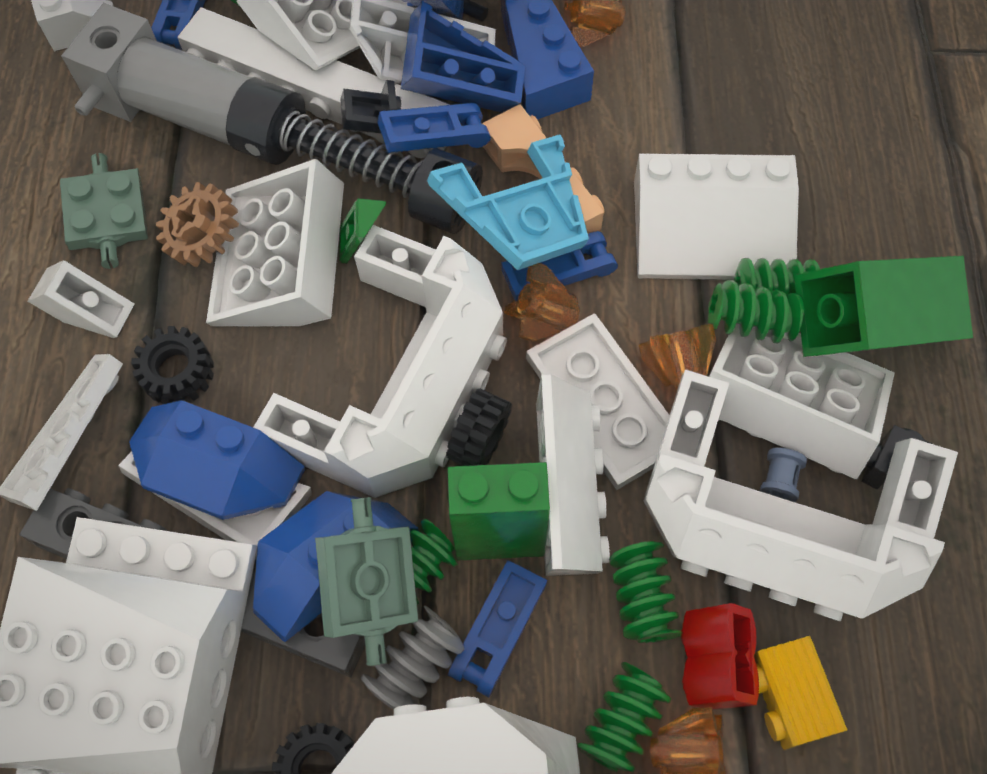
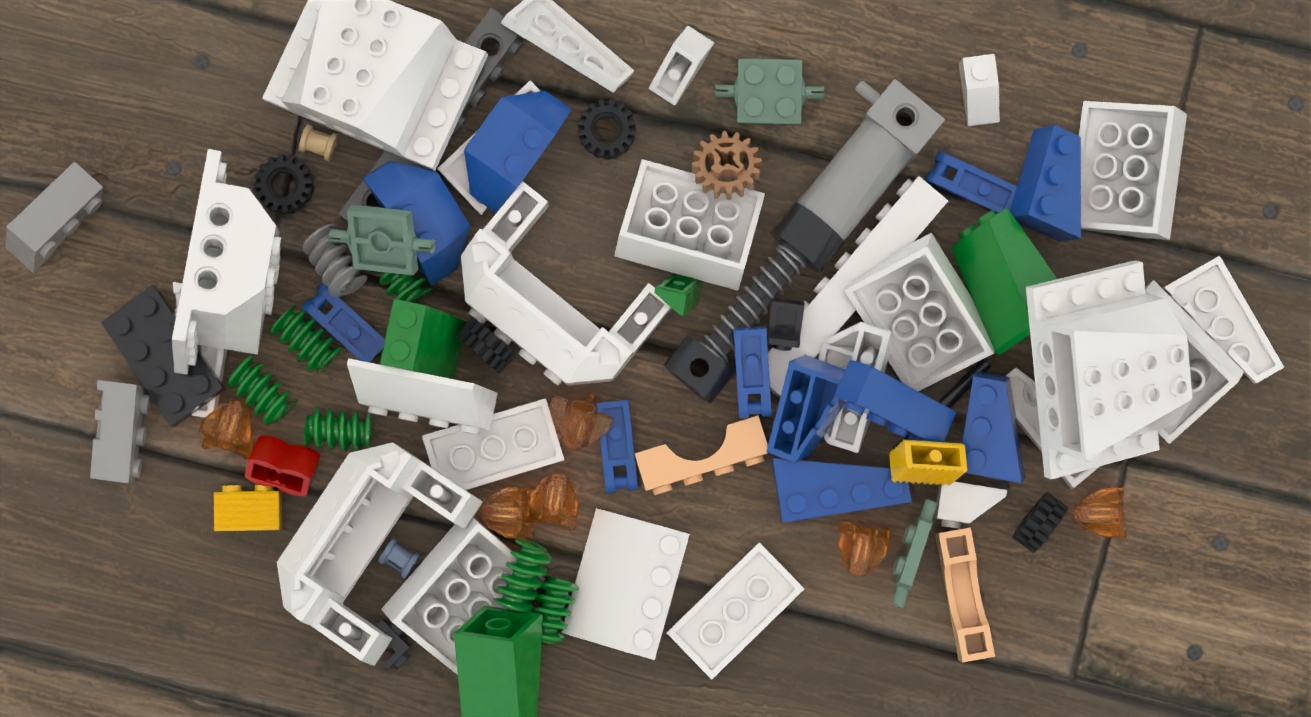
camera: 100 degrees right, 20 degrees up
(247, 734) = (318, 142): none -> tan bush
(524, 221) = (642, 427): medium azure wing -> none
(535, 669) = (304, 340): none -> green piece
(644, 308) = (554, 502): none -> clear orange brick
(701, 109) = (735, 610): none -> white plate

